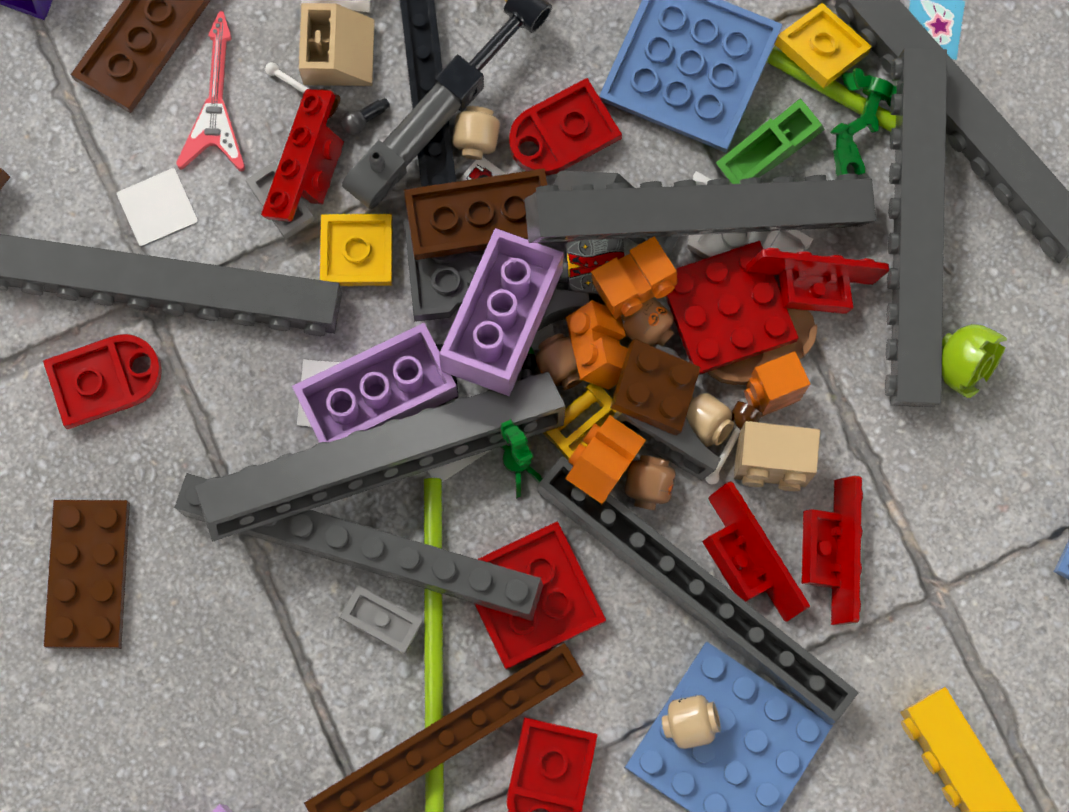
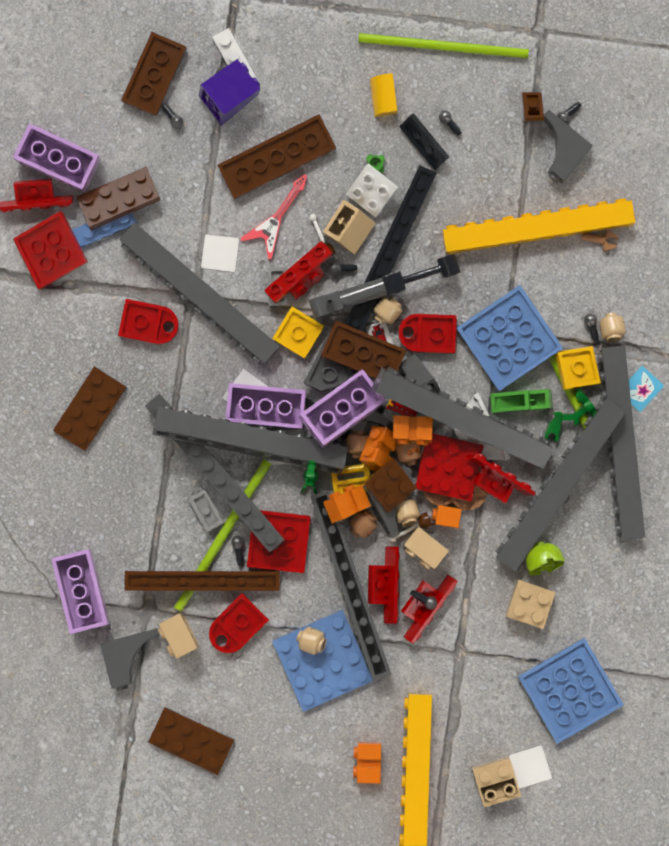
camera: 35 degrees right, 10 degrees up
(467, 641) = (238, 542): none -> piece
(839, 538) = (429, 602): none -> piece
(996, 442) = (530, 604): none -> tan brick

